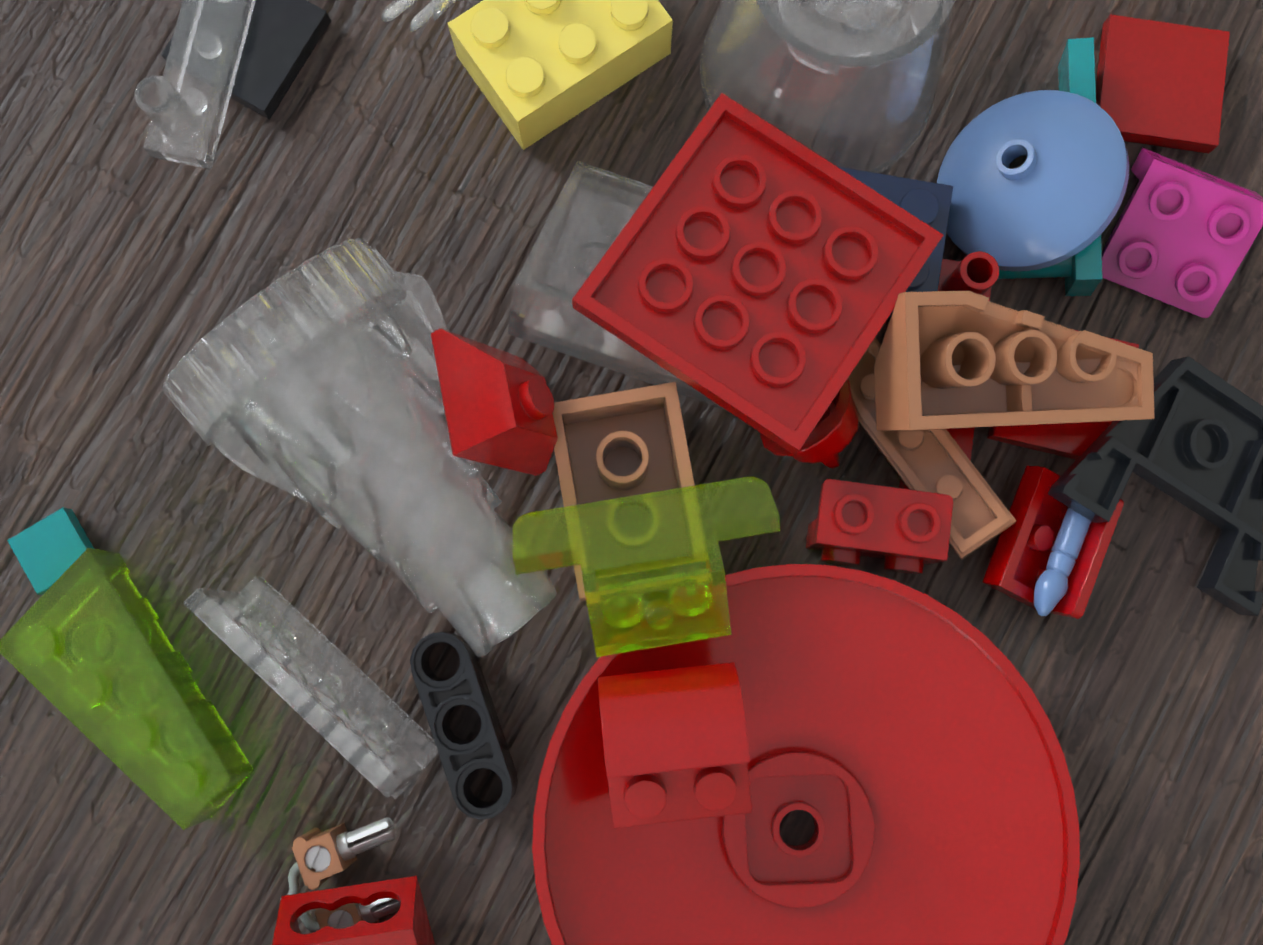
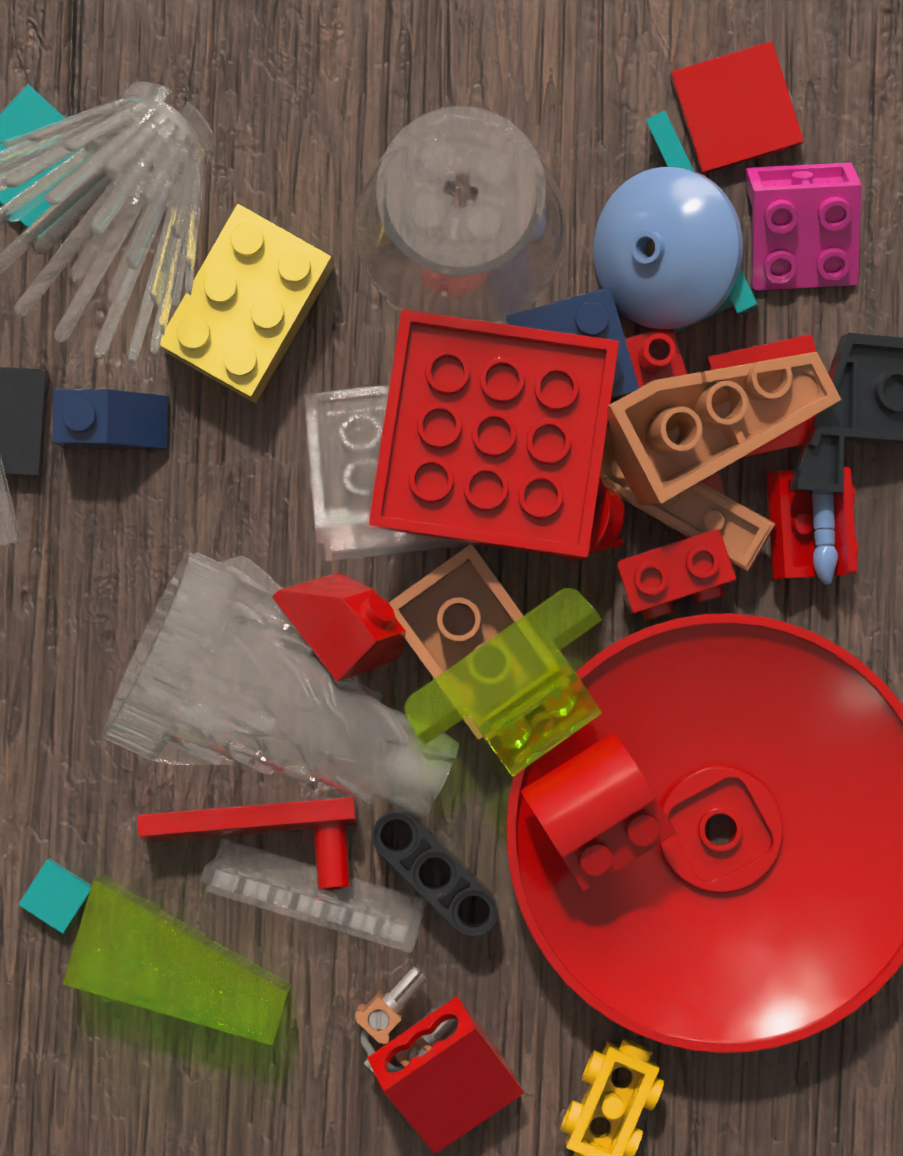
camera: 20 degrees left, 5 degrees up
(361, 86) = (110, 419): none -> dark blue slope
(376, 604) = (325, 816): none -> red piece

